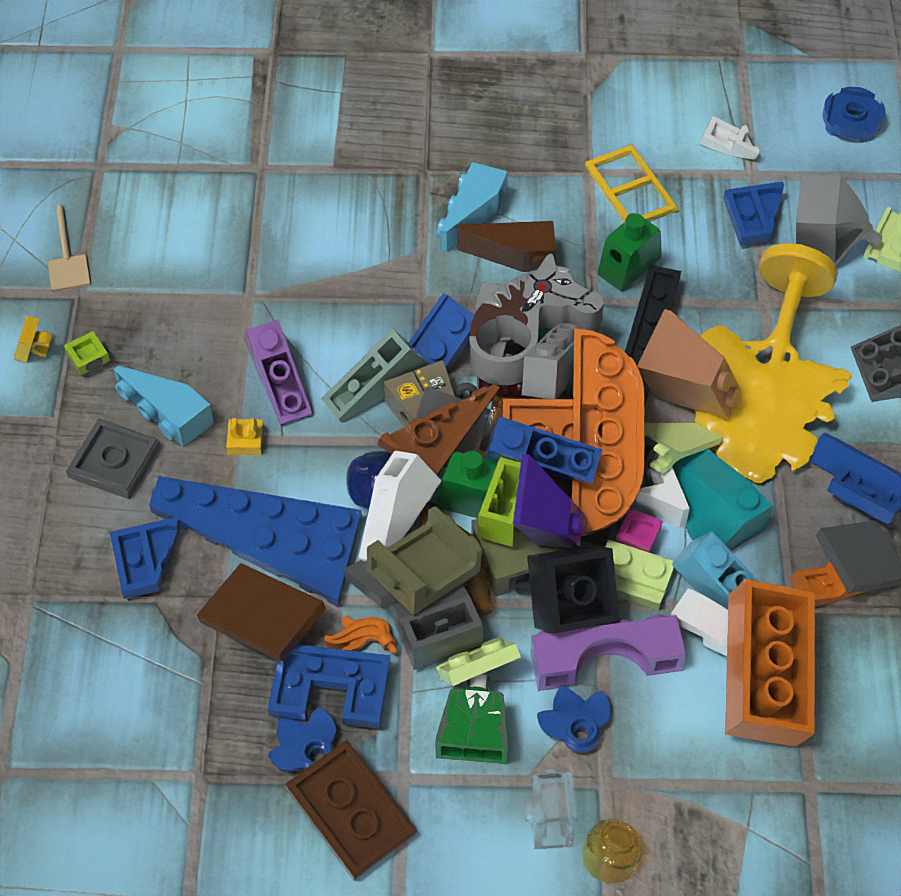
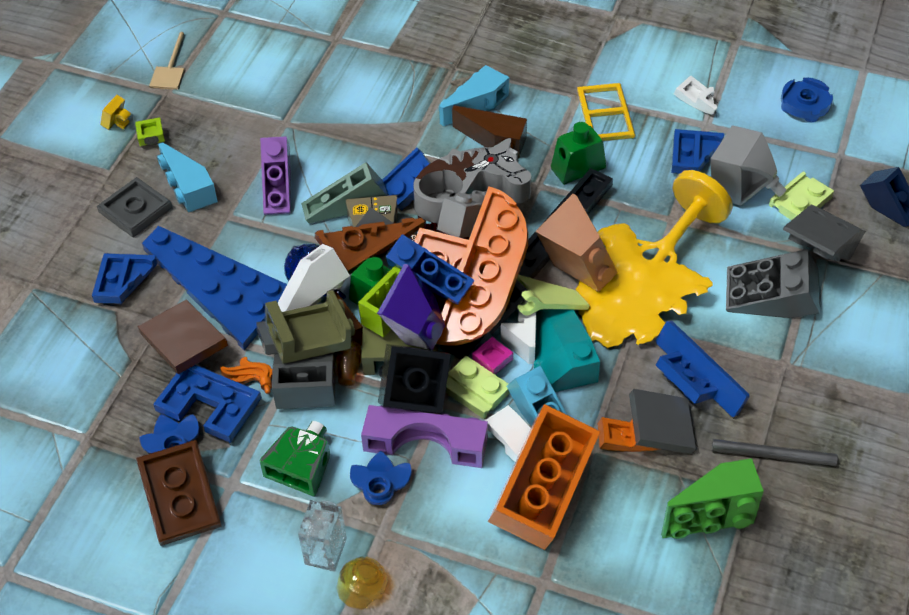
camera: 20 degrees right, 5 degrees down
(245, 436) = (233, 215): yellow tile -> none
(478, 661) = (307, 412): yellowish green plate -> none

